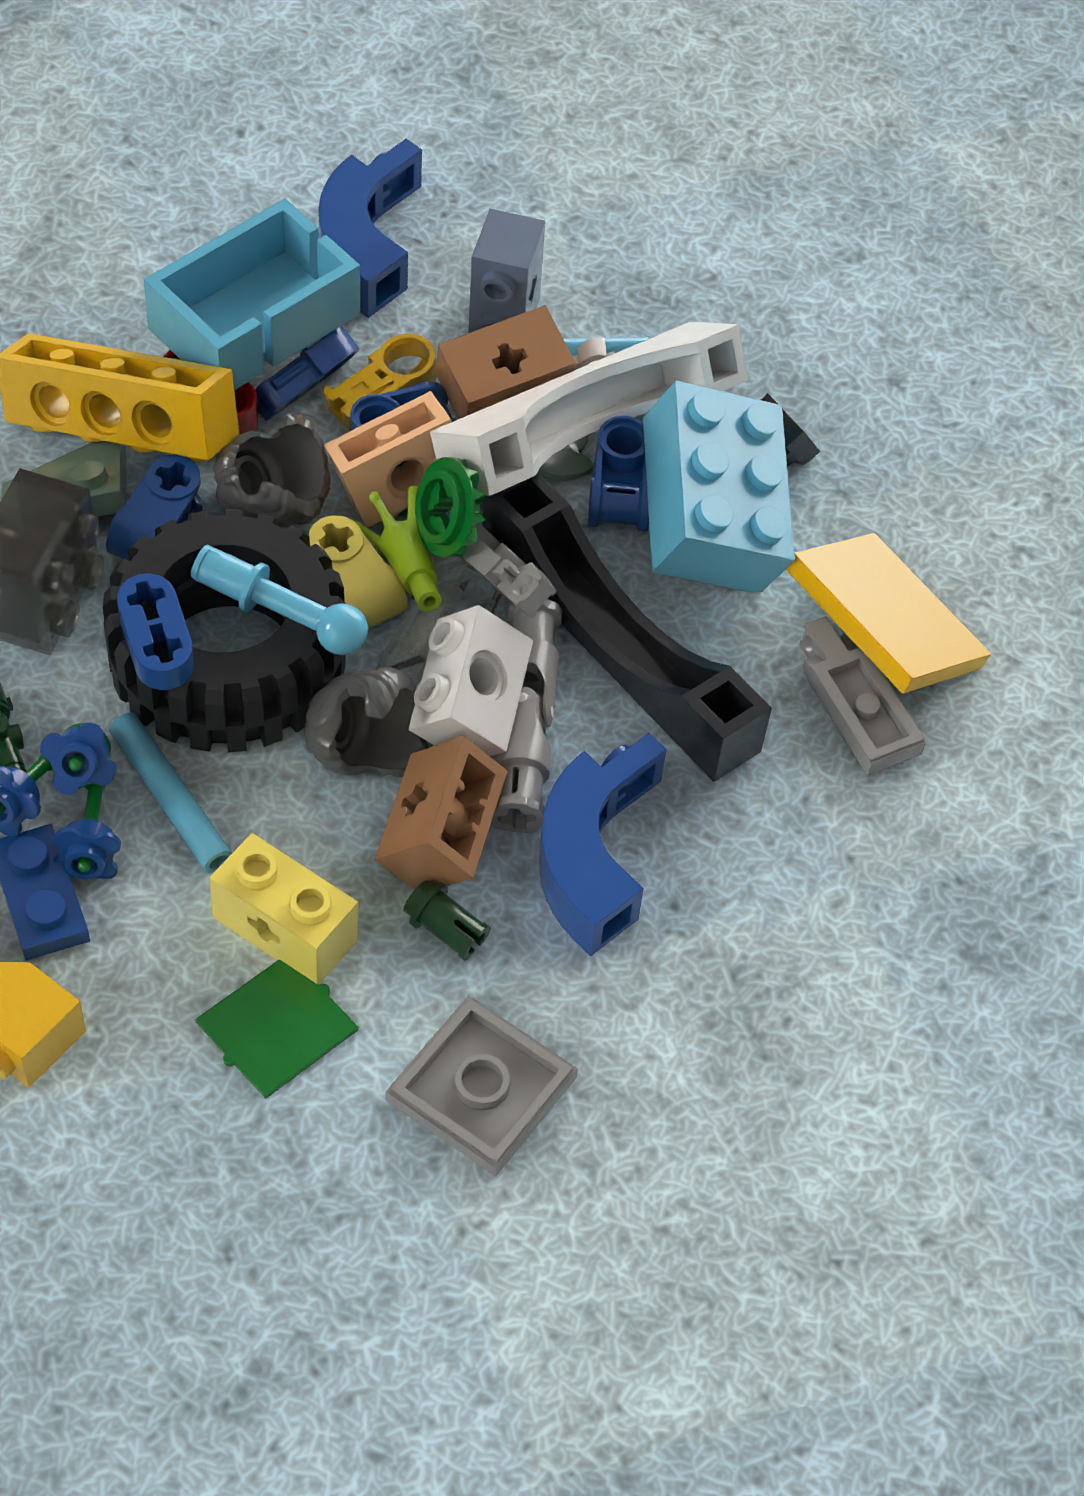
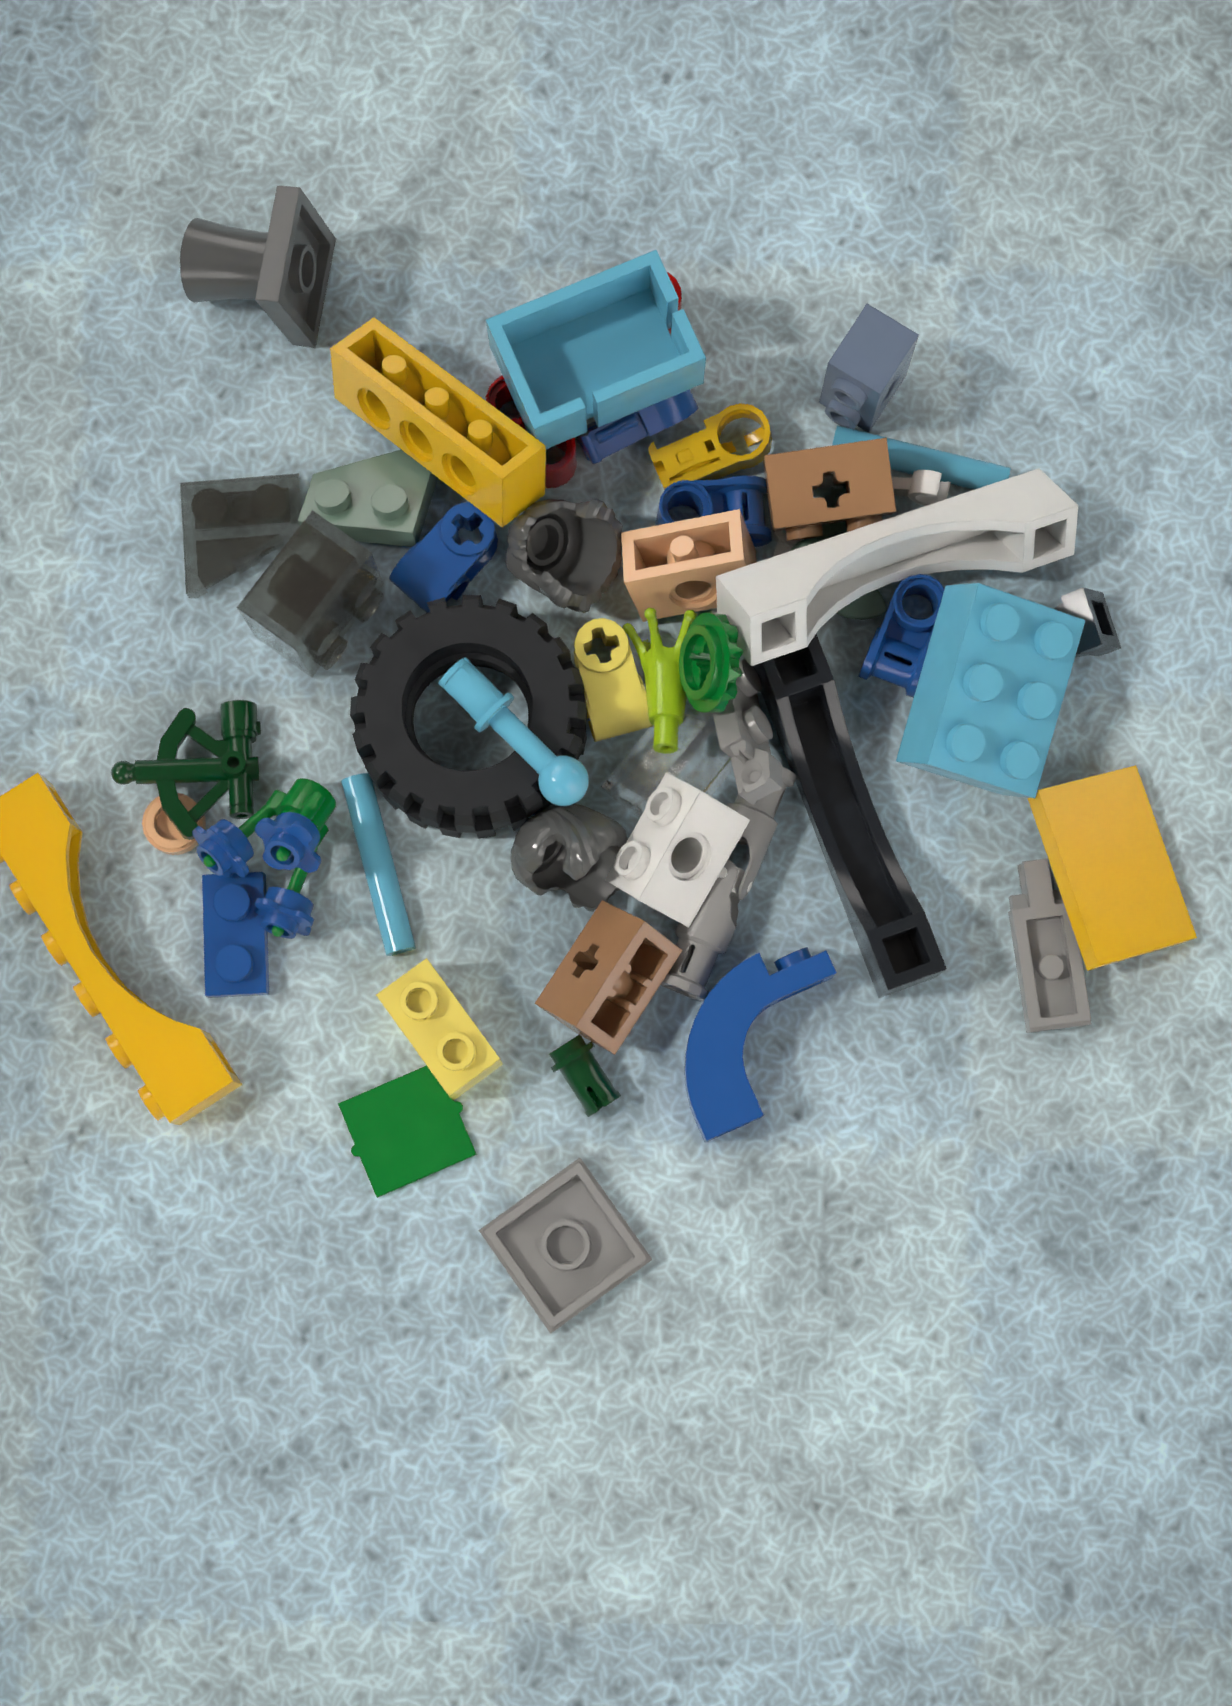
camera: 25 degrees right, 25 degrees up
(166, 628) = (374, 736): blue beam -> none
(351, 205) = (729, 284): blue arch -> none

